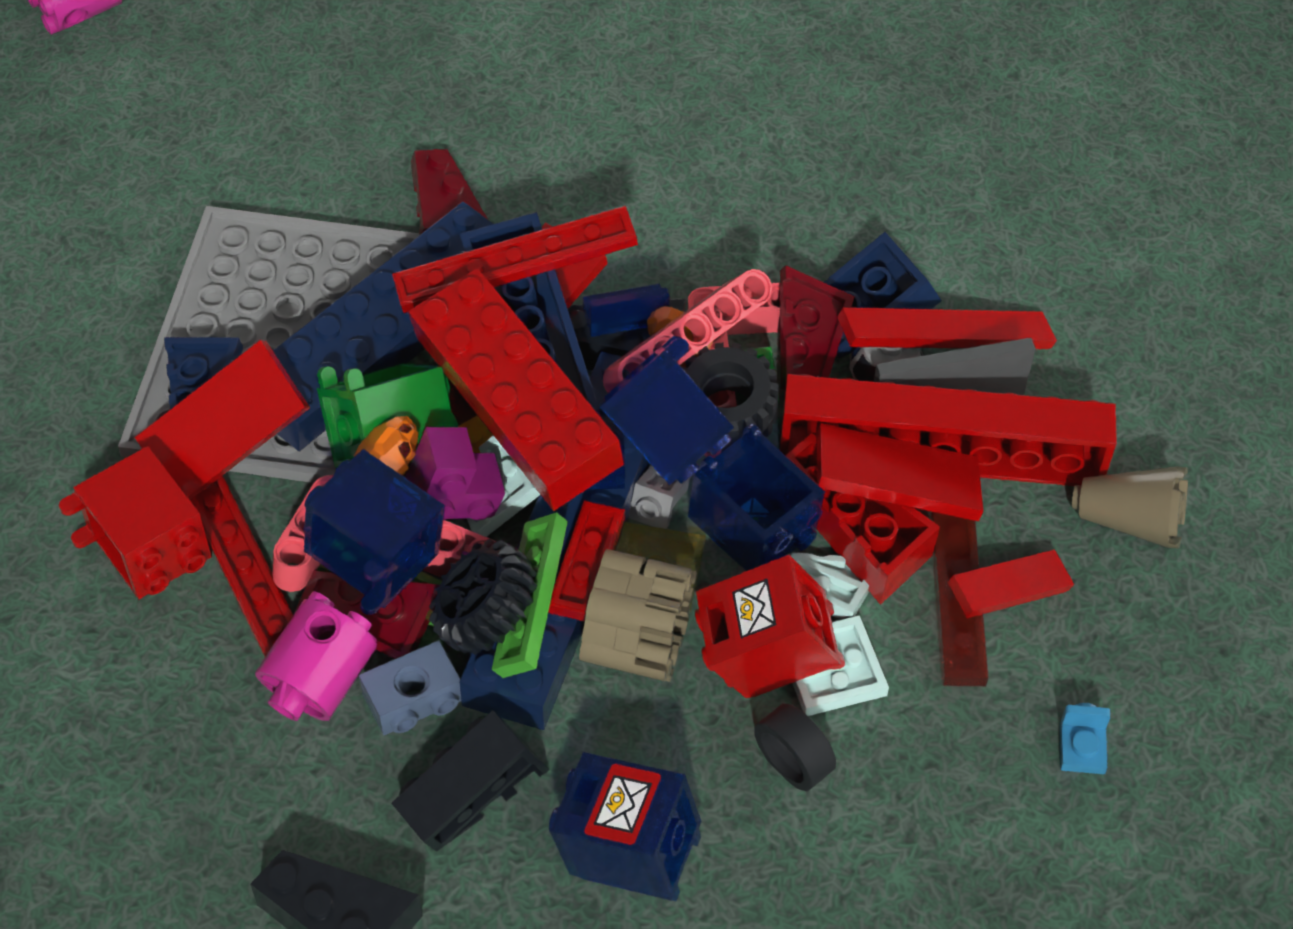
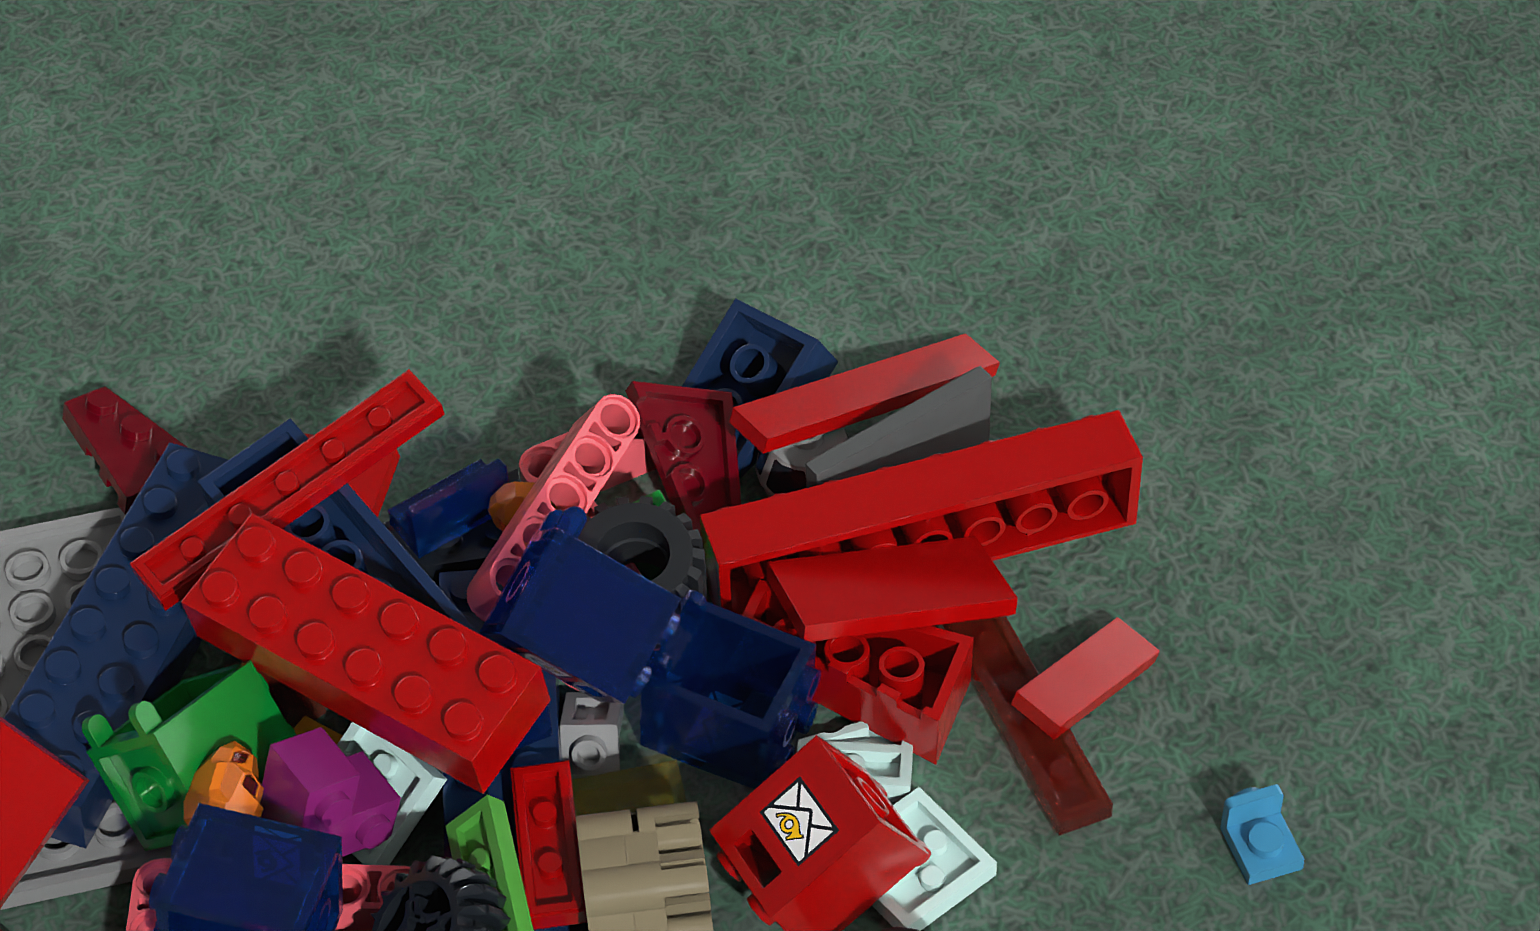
camera: 20 degrees left, 5 degrees down
(1136, 503) = (1190, 524): dark tan cone -> none

